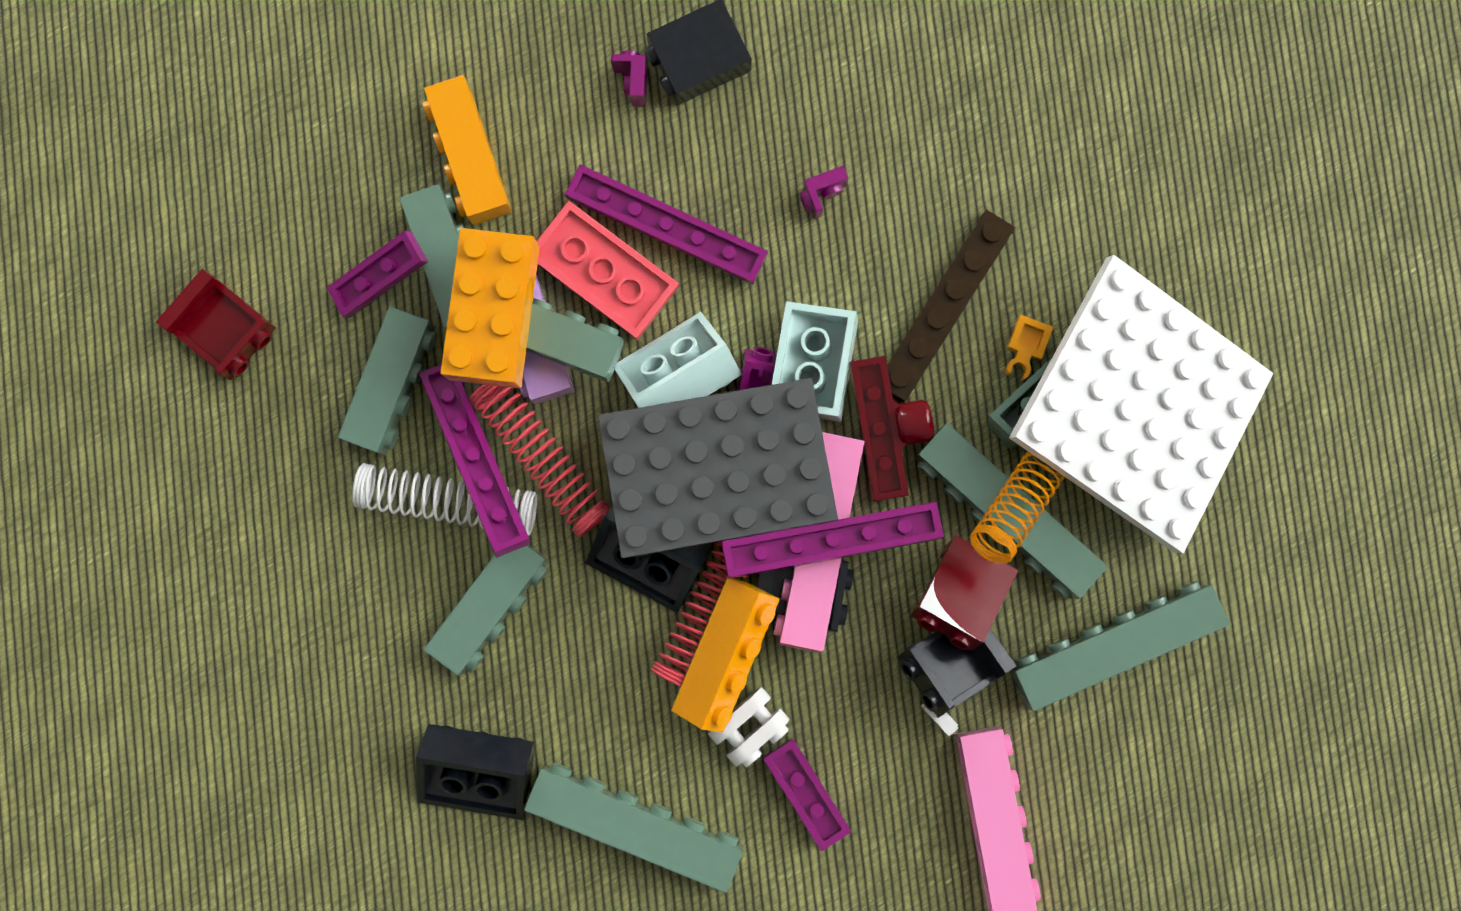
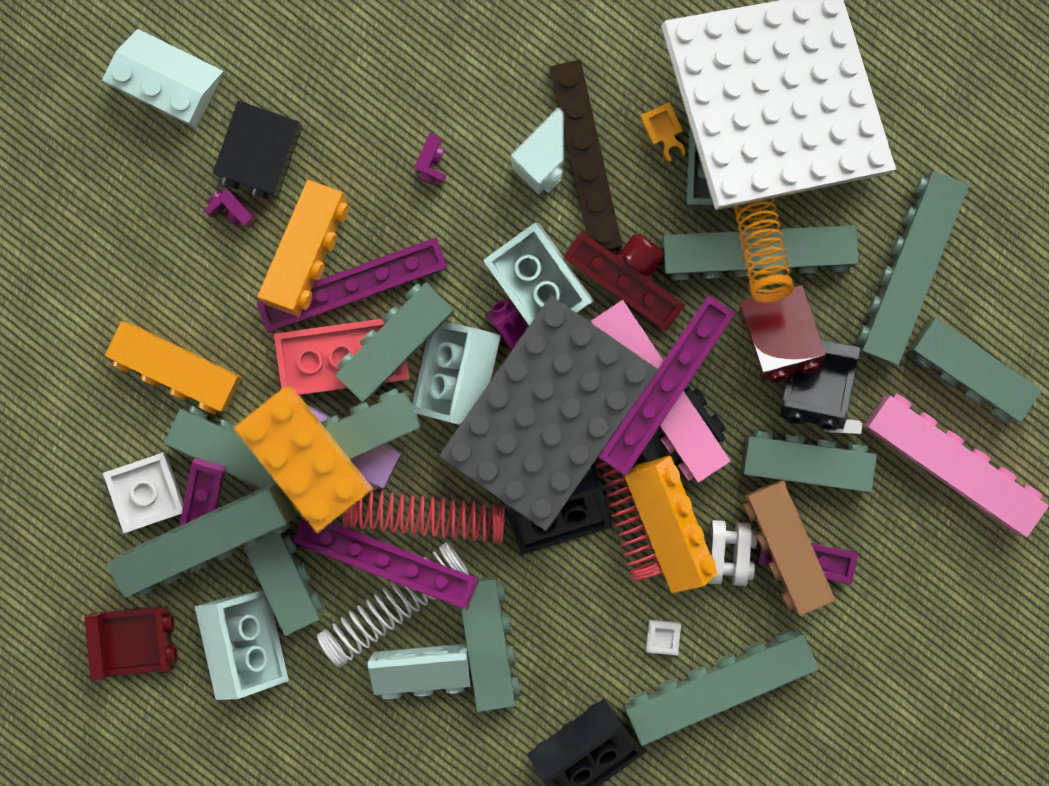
camera: 50 degrees left, 5 degrees up
(297, 413) = (241, 645): none -> light aqua slope
(347, 222) = (144, 492): none -> white plate
(351, 298) = (202, 539): none -> sand green brick
(411, 571) = (420, 670): none -> light aqua slope
(629, 741) = (663, 637): none -> white tile
(653, 296) = (395, 341): none -> sand green brick
(657, 158) = (304, 248): none -> light orange brick
(800, 771) = (789, 548): none -> medium nougat brick
(883, 718) = (808, 463): none -> sand green brick
(913, 262) = (541, 155): none -> light aqua slope
(1089, 779) = (974, 371): none -> sand green brick

